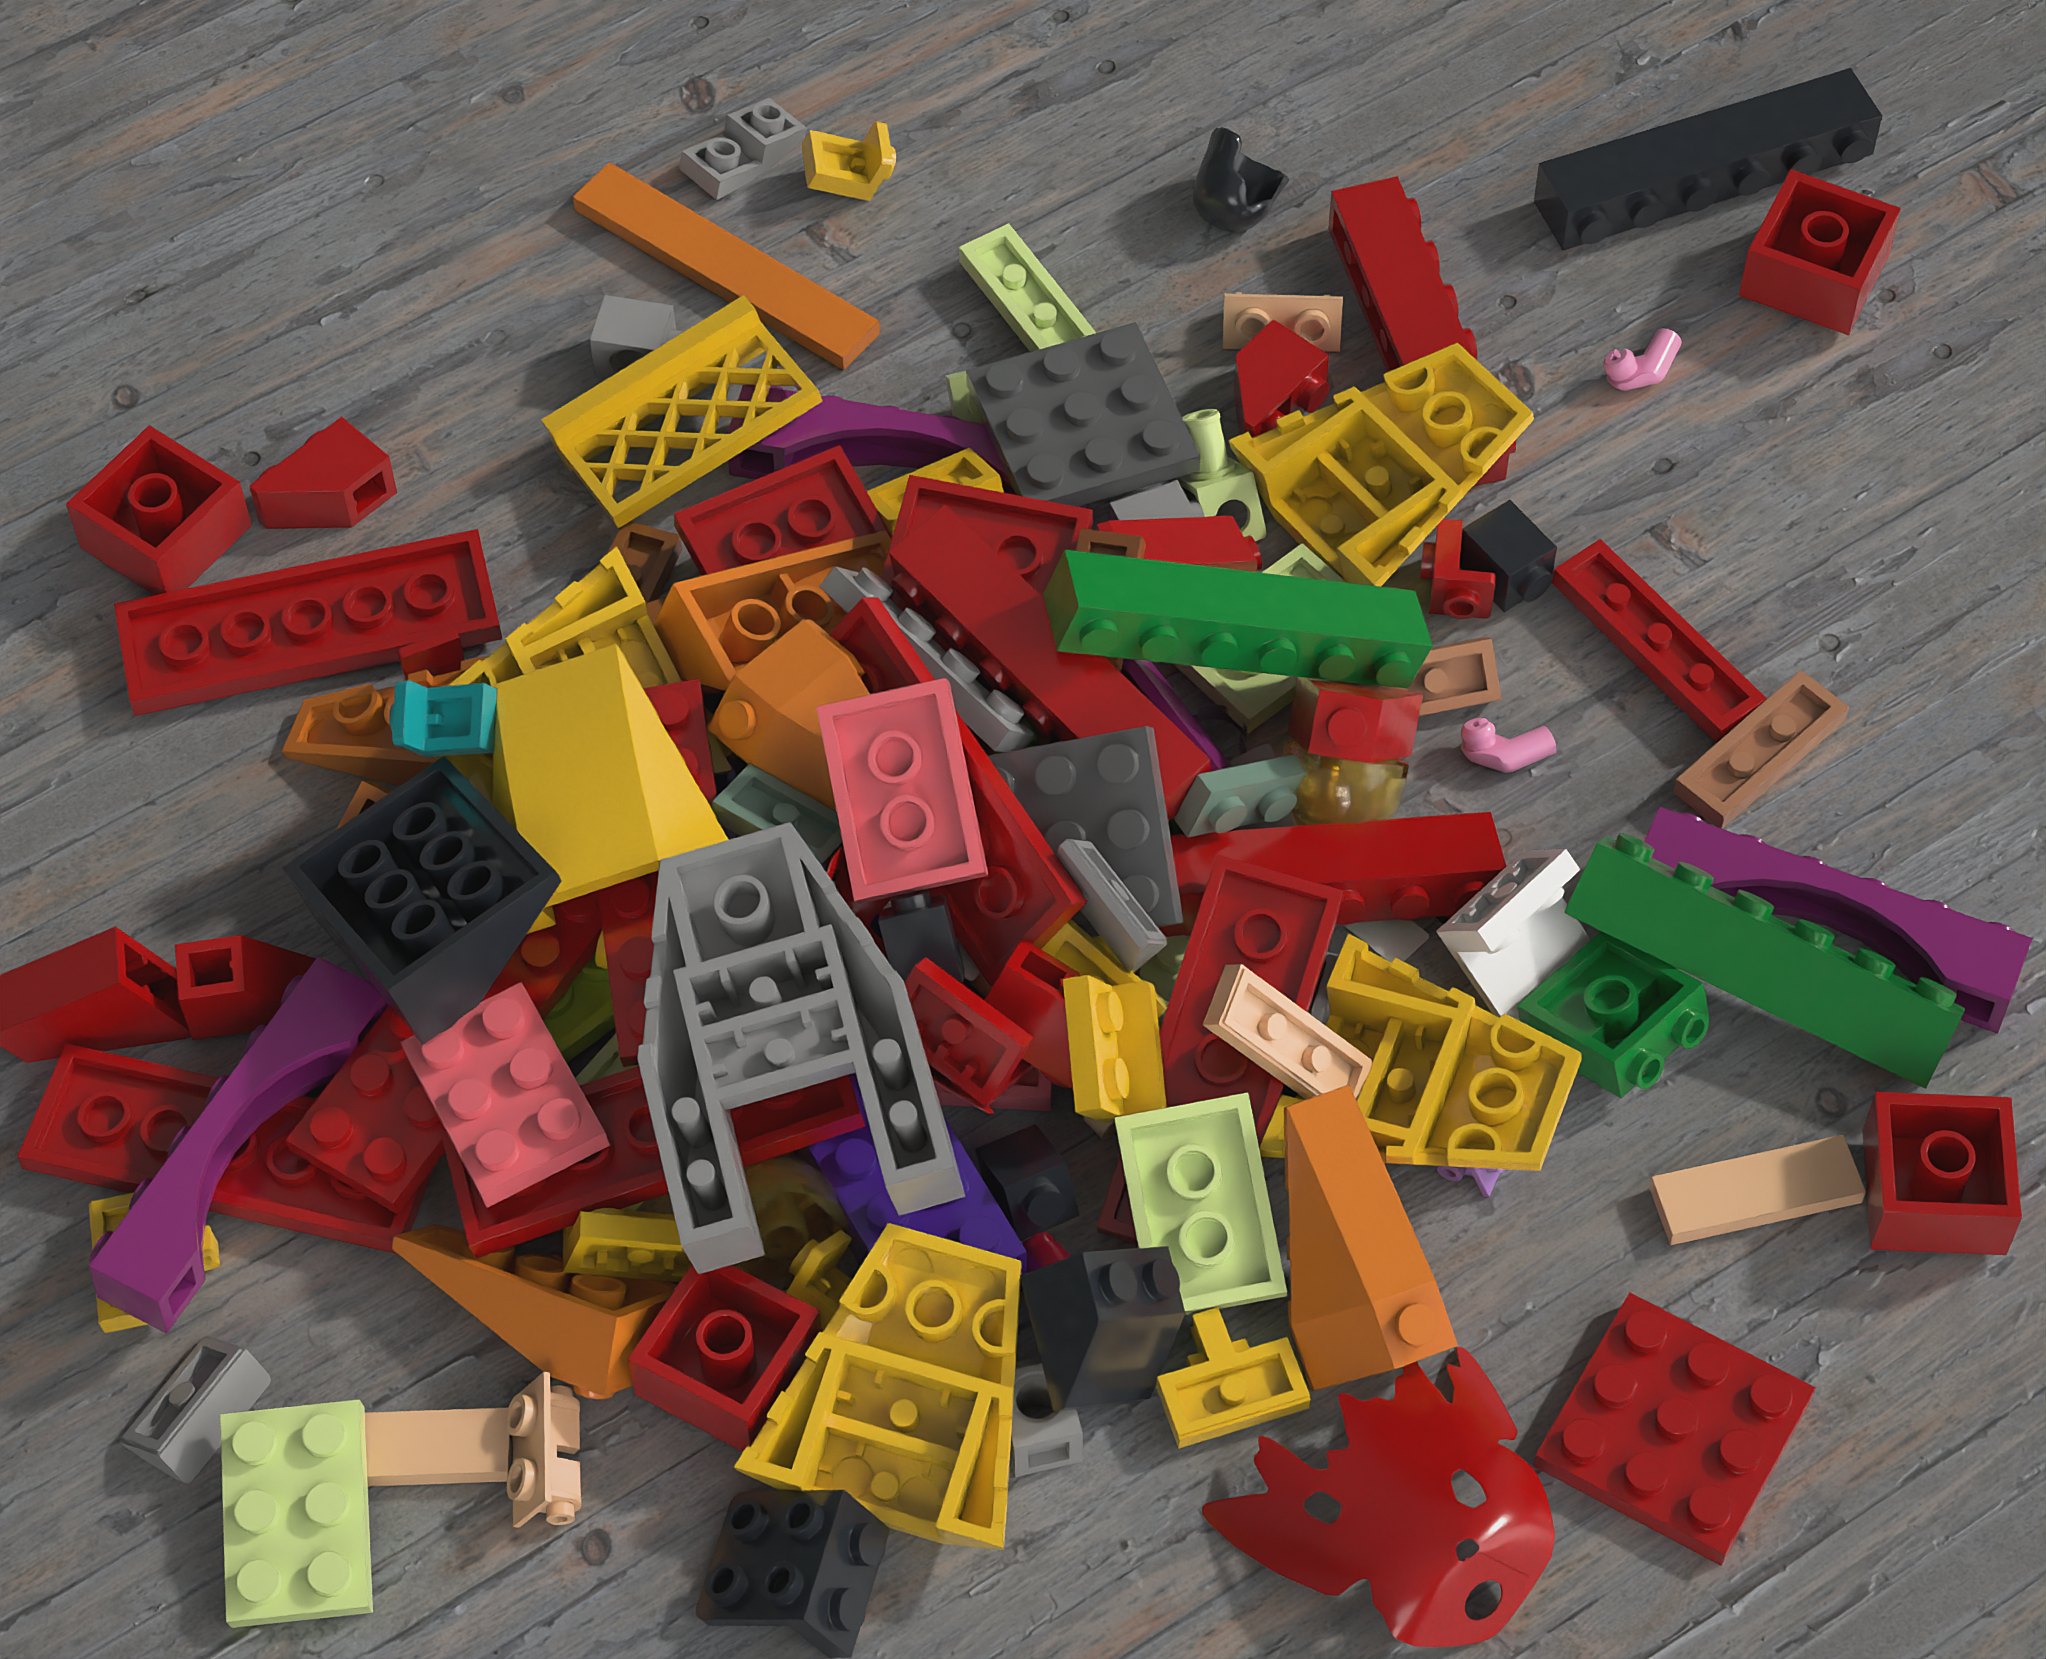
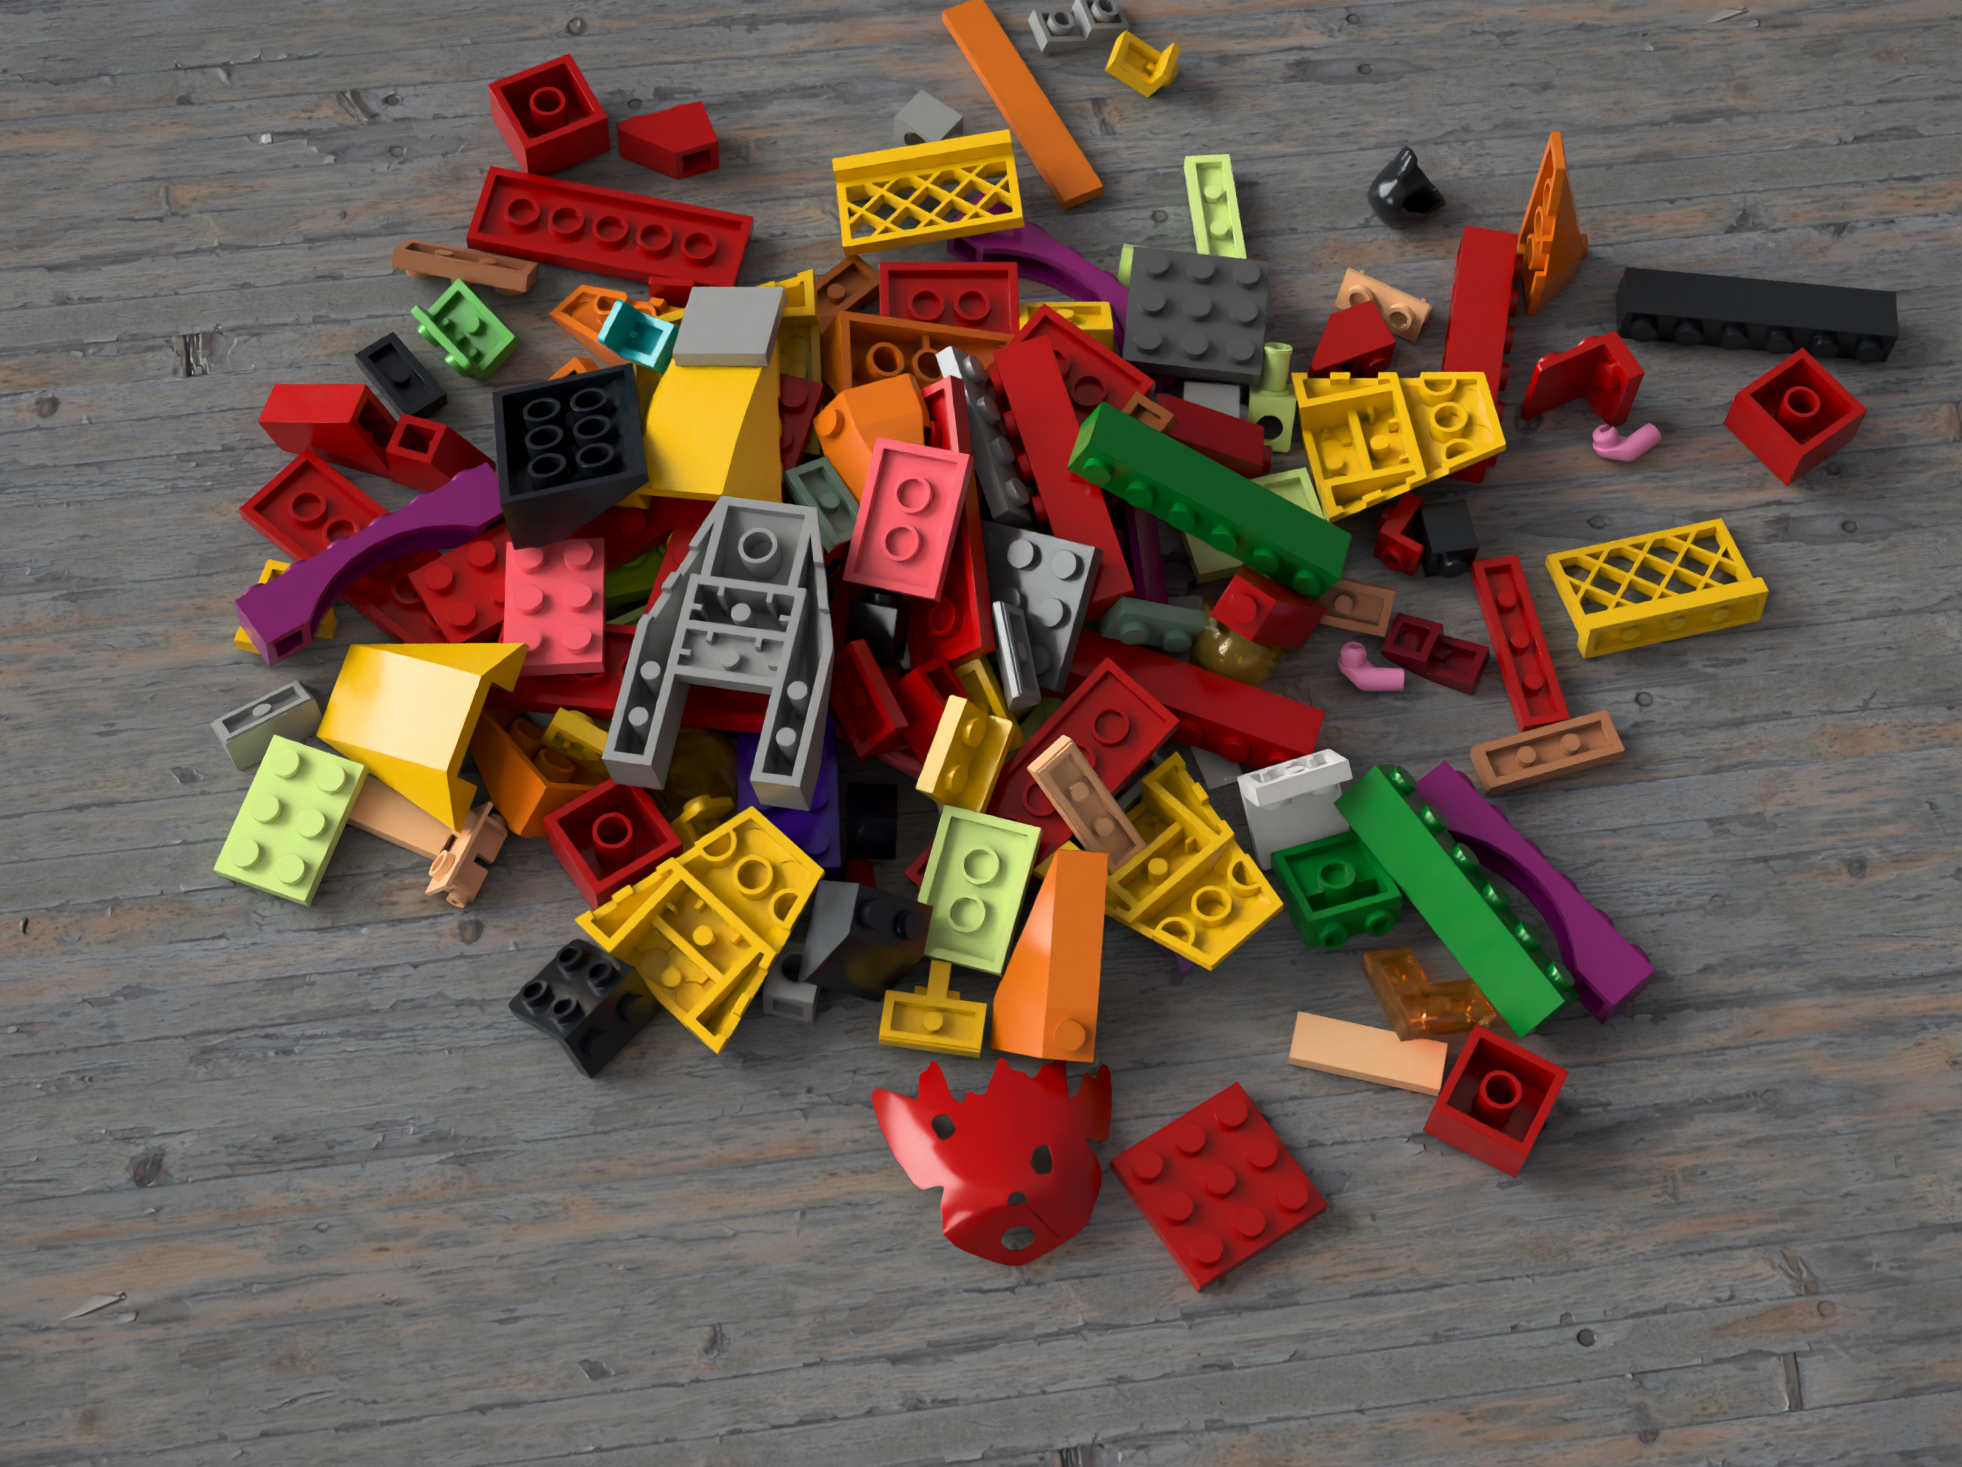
camera: 20 degrees right, 5 degrees up
(139, 906) = (401, 377): none -> black plate
(146, 738) = (427, 259): none -> nougat plate
(194, 811) = (468, 330): none -> bright green bracket
(397, 1306) = (414, 713): none -> yellow wedge
(553, 656) = (729, 326): none -> light grey tile
(1434, 149) = (1550, 231): none -> orange wedge
(1570, 697) = (1426, 651): none -> dark red slope
(1580, 291) = (1594, 368): none -> red bracket
(1785, 1106) = (1419, 1007): none -> clear orange plate
(1804, 532) = (1668, 613): none -> yellow fence

